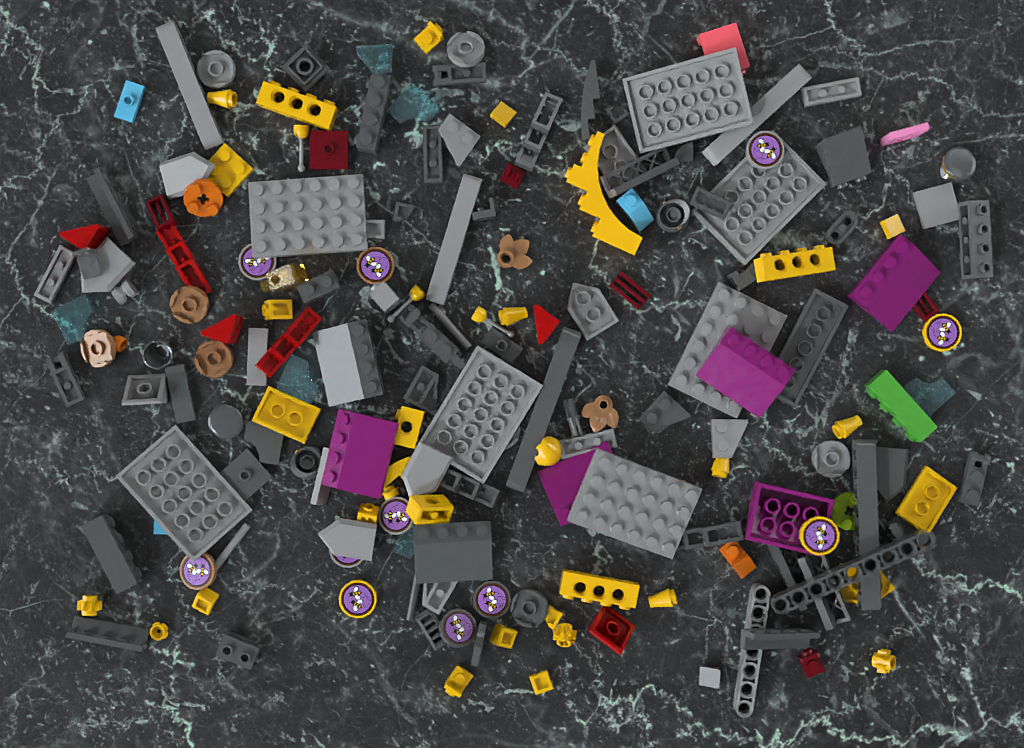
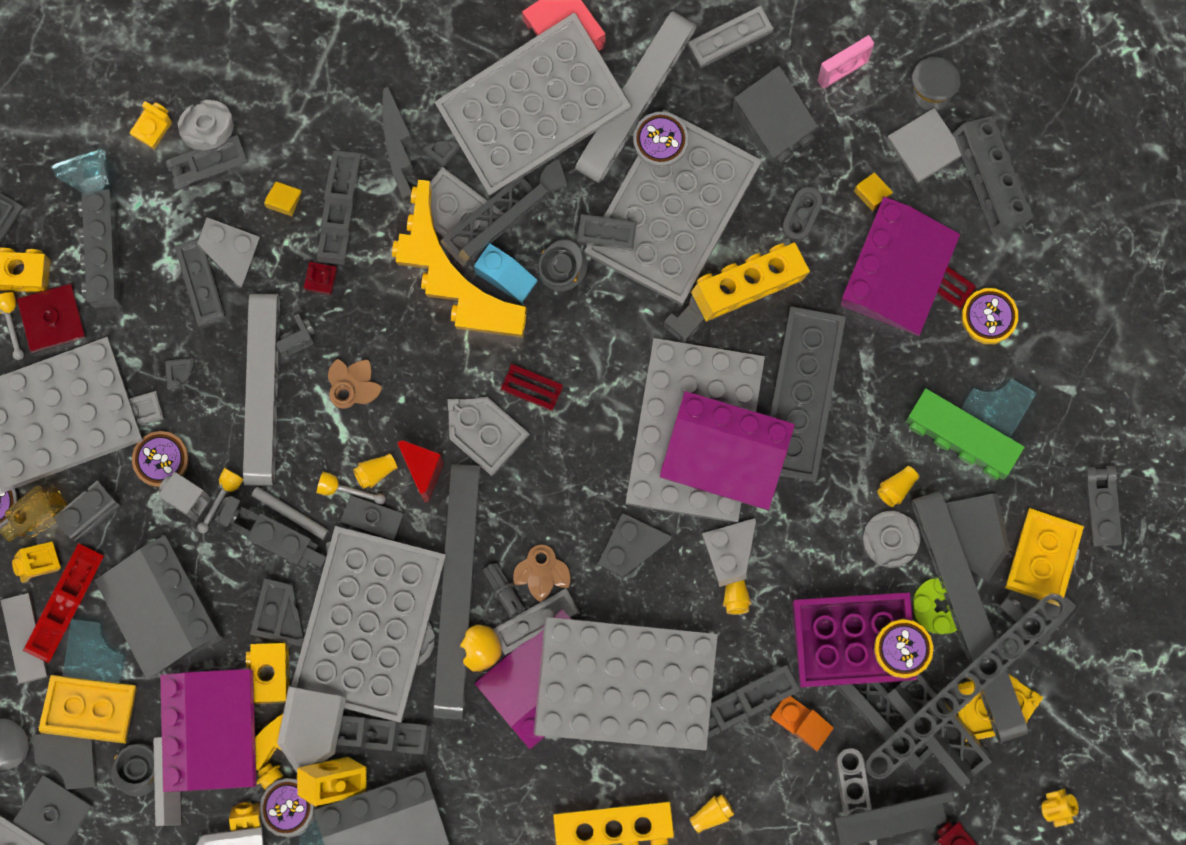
camera: 15 degrees left, 10 degrees down
(412, 105) = (152, 222): clear light blue tile -> none

